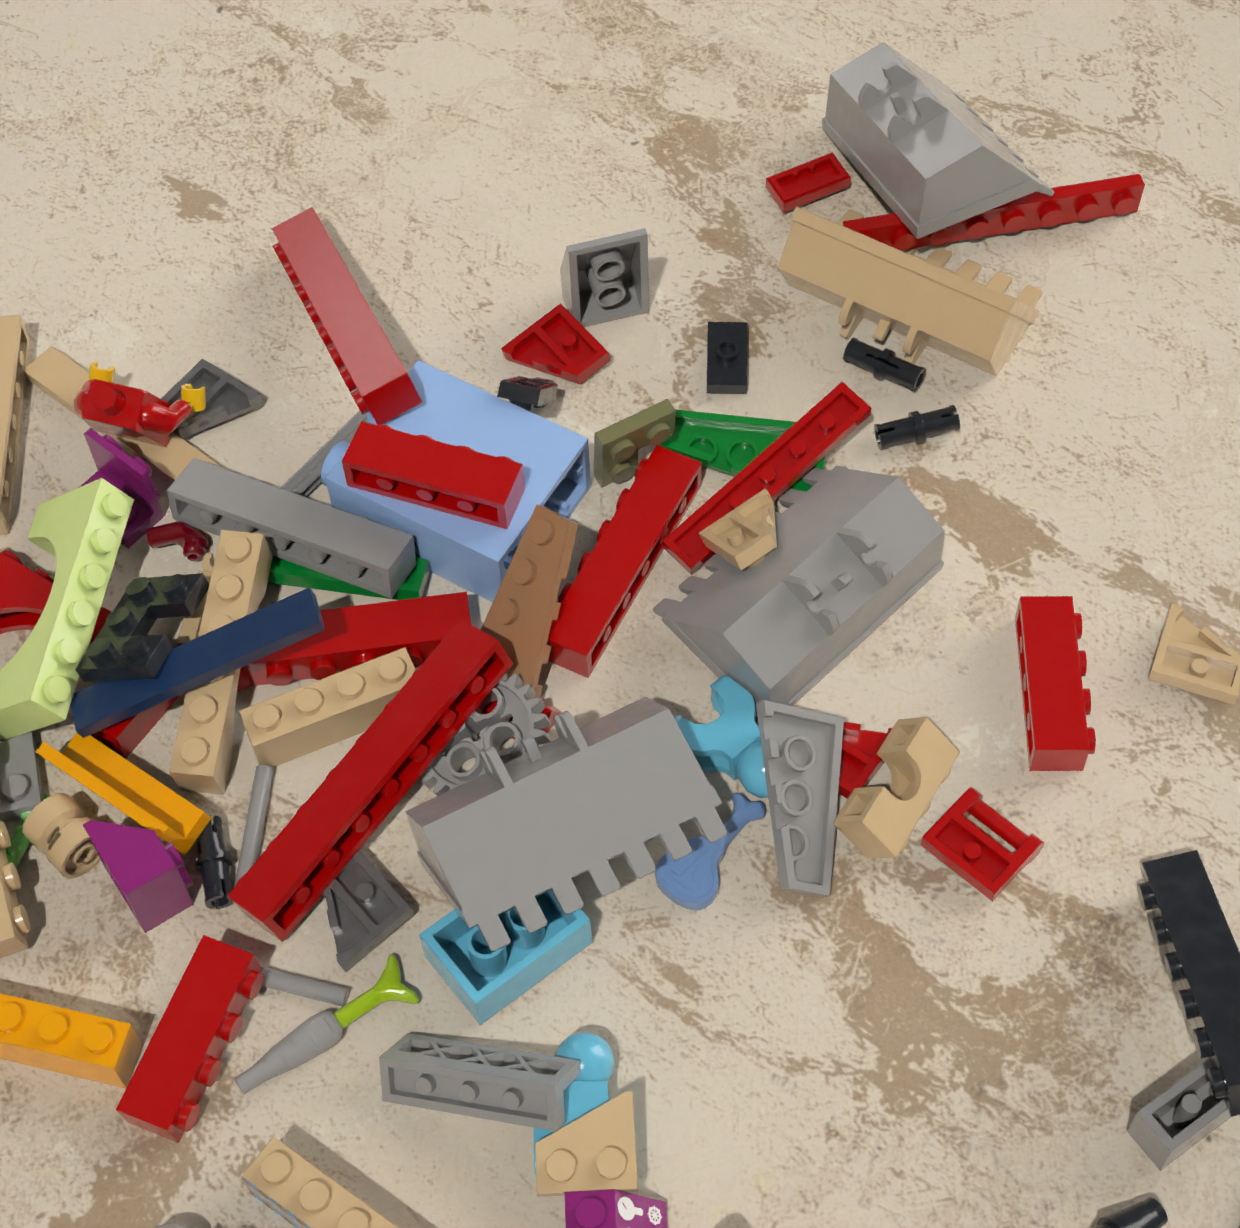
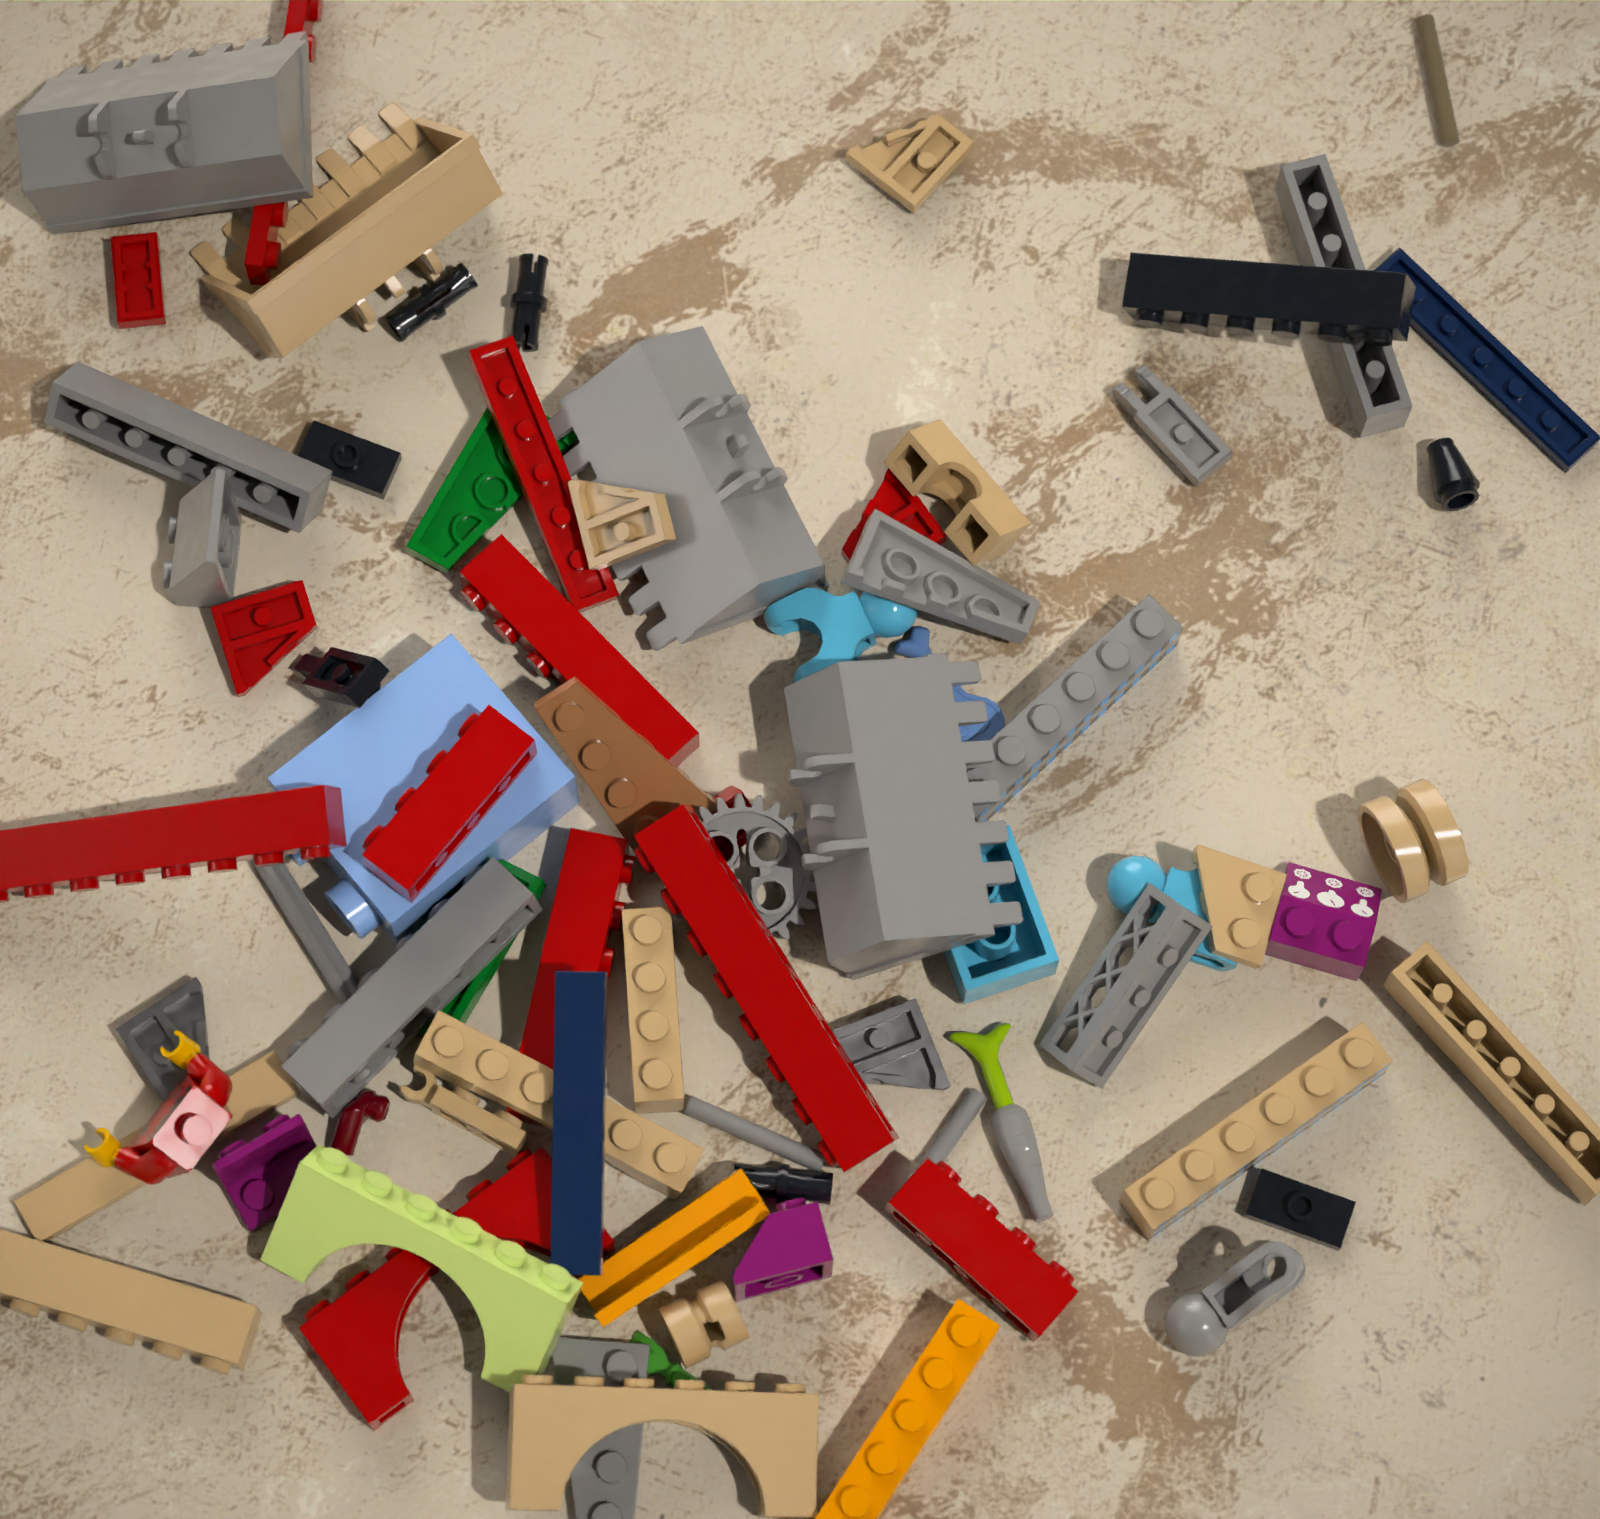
camera: 75 degrees left, 15 degrees up
(123, 646) = (518, 1208): black plate -> none
(619, 443) = (454, 606): olive plate -> none
(683, 250) = (186, 445): none -> light grey brick
(732, 946) = (1076, 700): none -> light grey brick
(973, 852) = (1042, 453): red plate -> none
(1051, 958) = (1174, 427): none -> light grey hinge
(1052, 684) = (890, 302): red brick -> none

